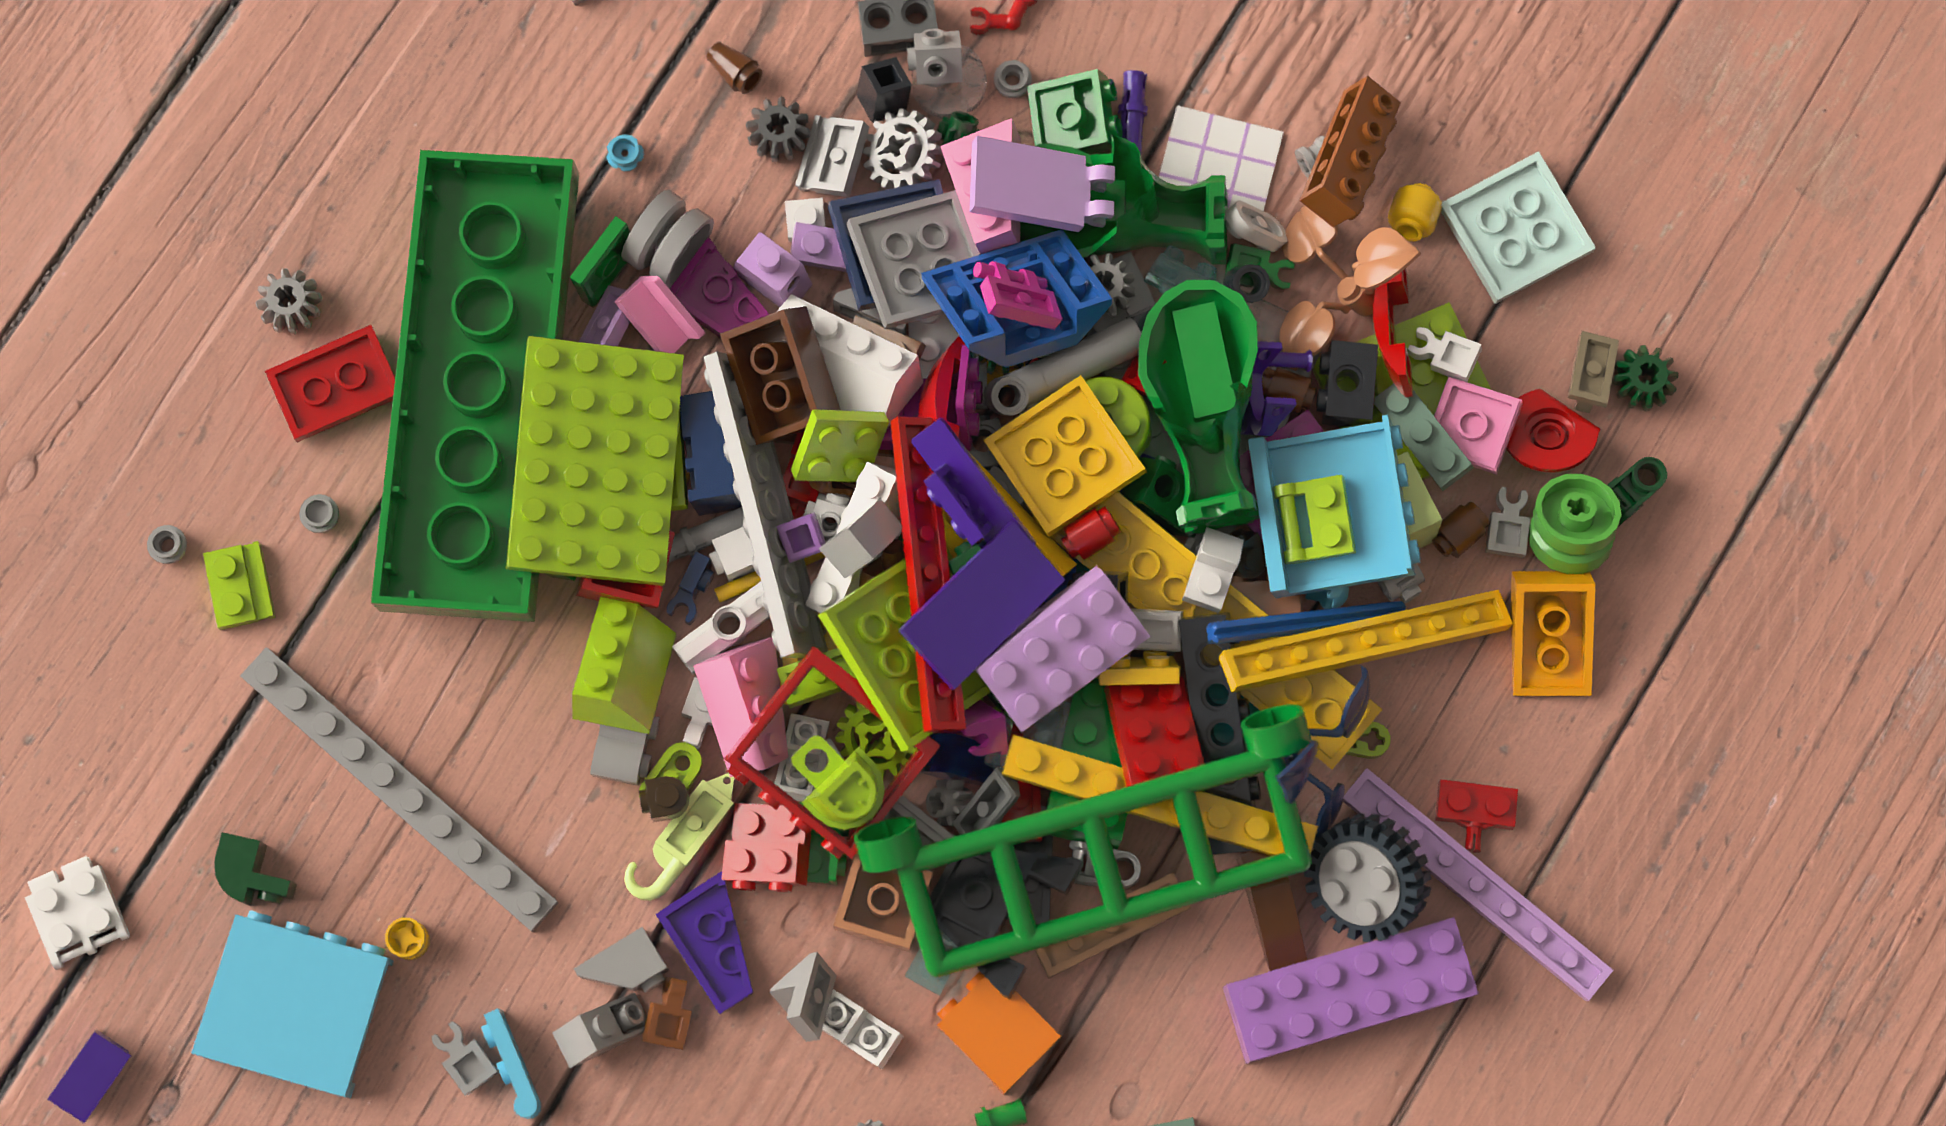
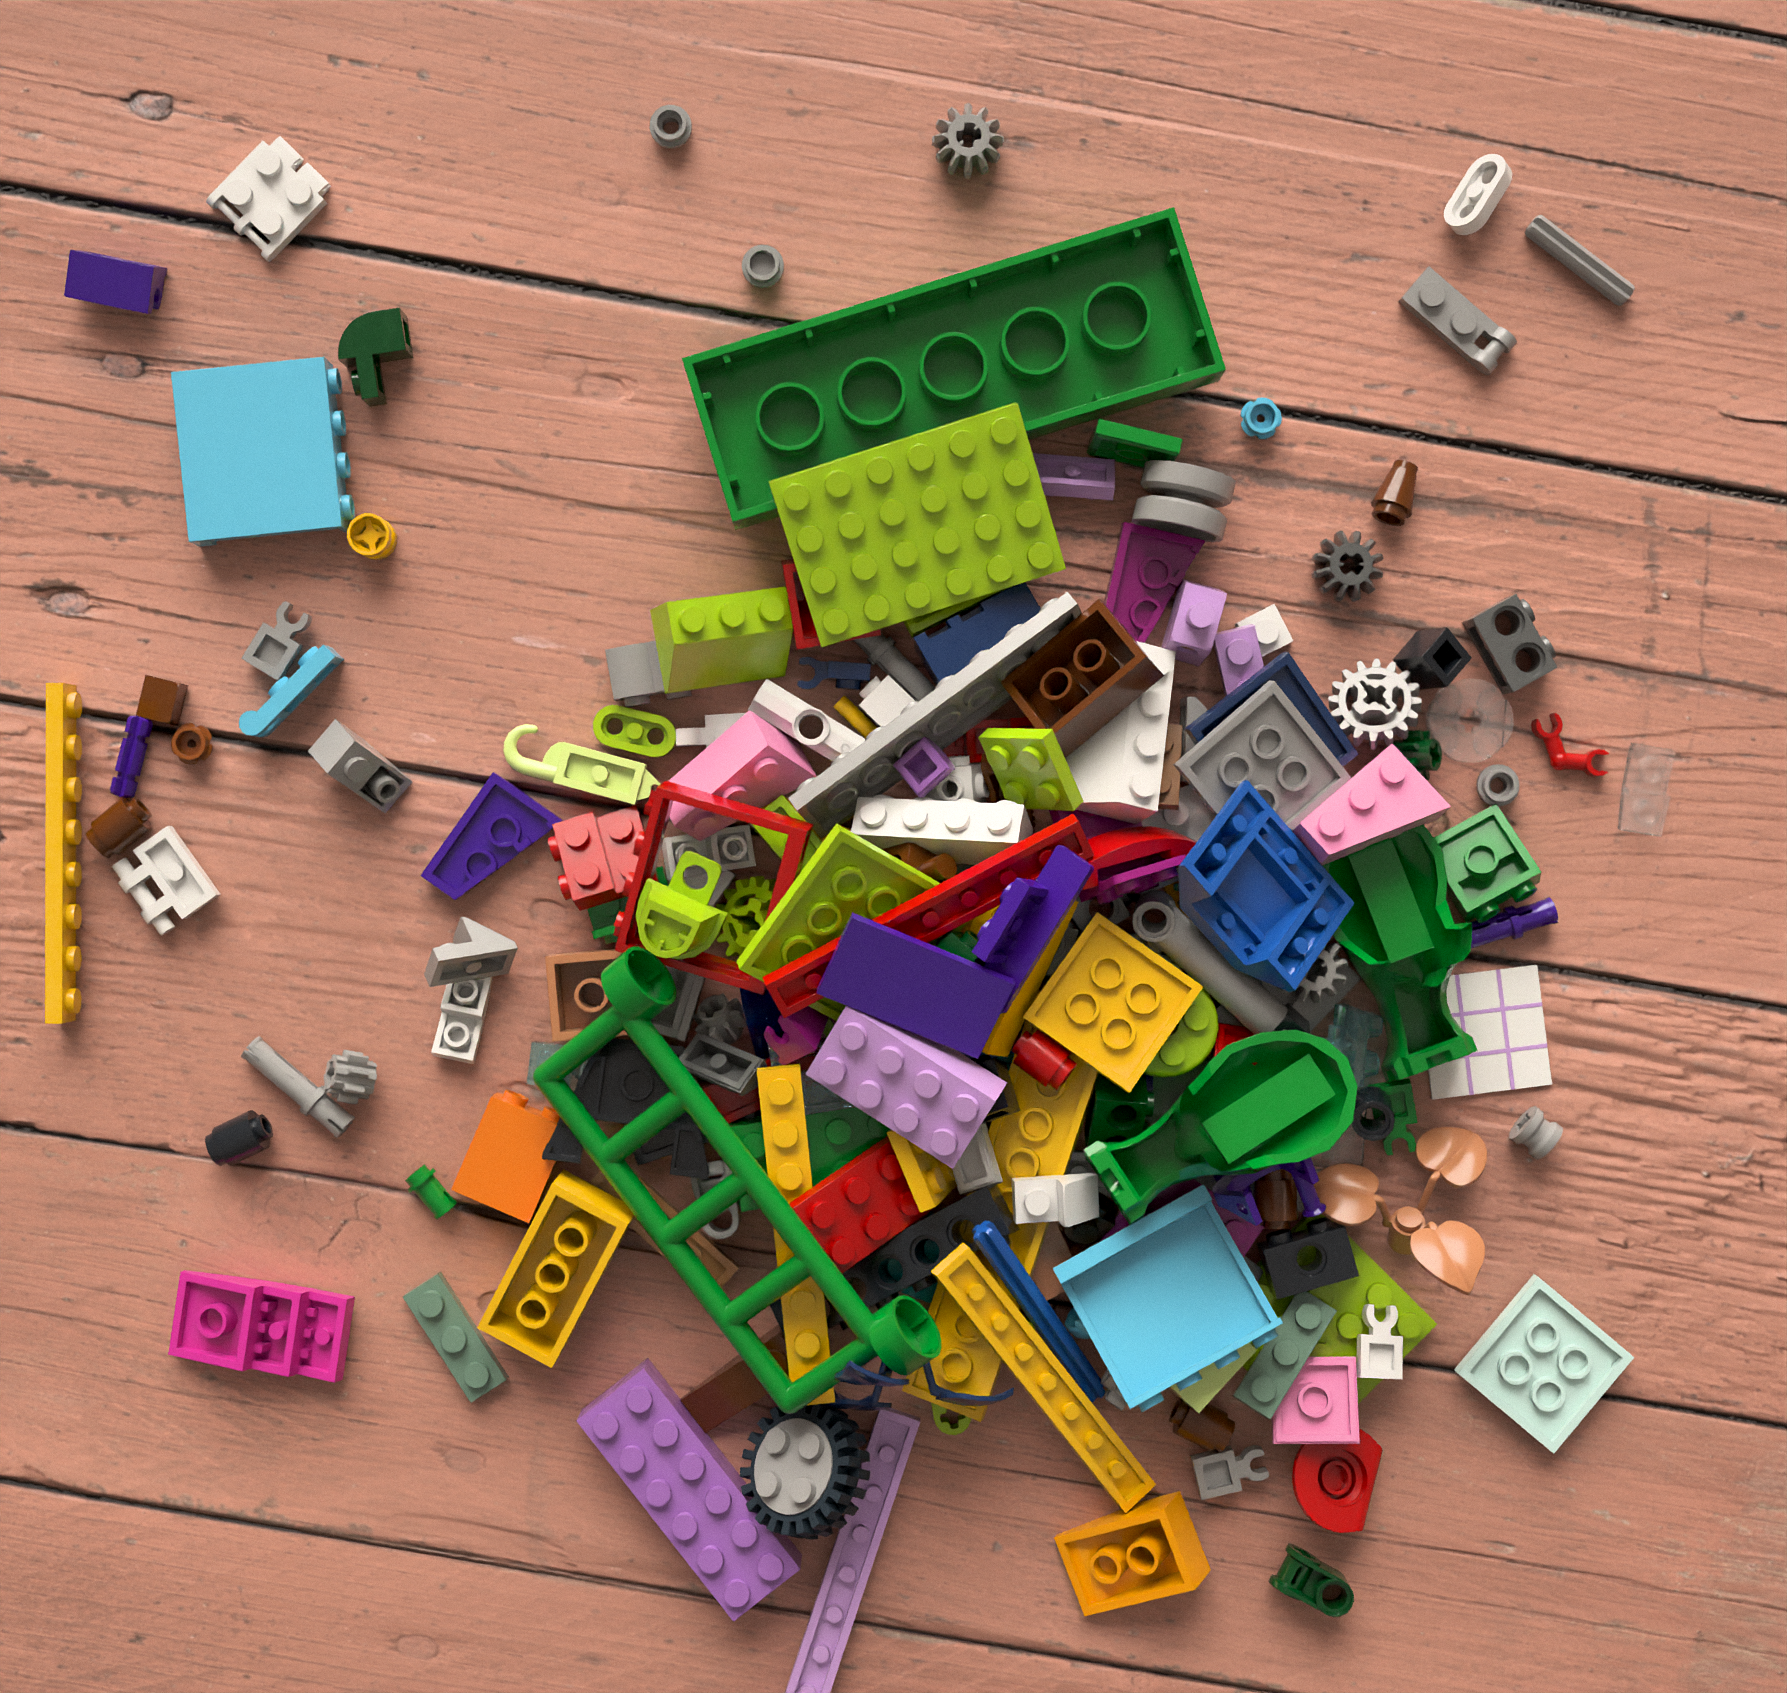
camera: 75 degrees right, 10 degrees up
(239, 585) = (658, 217): lime plate -> none
(333, 383) = (901, 222): red plate -> none
(399, 789) = (519, 463): light grey plate -> none
(626, 964) = (432, 764): light grey slope -> none
(658, 314) = (1100, 524): bright pink panel -> none
(664, 798) = (607, 734): dark brown plate -> none
(667, 1022) = (394, 828): dark orange plate -> none
(832, 156) = (1341, 633): light grey plate -> none
(862, 539) = (940, 834): light grey slope -> none
(936, 57) = (1487, 700): light grey brick -> none
(1017, 295) = (1260, 890): dark pink plate -> none
(1037, 185) = (1387, 862): lavender tile -> none
(1110, 1025) = (556, 1268): none -> yellow brick
(1255, 226) = (1437, 1098): white plate -> none
(1327, 516) = (1153, 1296): lime plate -> none
(1350, 152) = (1555, 1168): dark orange brick -> none
(1394, 355) = (1351, 1298): red slope -> none
(1415, 211) = (1518, 1253): yellow head -> none
(1476, 808) = (924, 1543): red plate -> none
(1574, 523) = (1252, 1541): bright green wheel -> none
(1592, 371) = (1421, 1498): dark tan plate -> none
(1647, 392) = (1439, 1538): dark green gear -> none

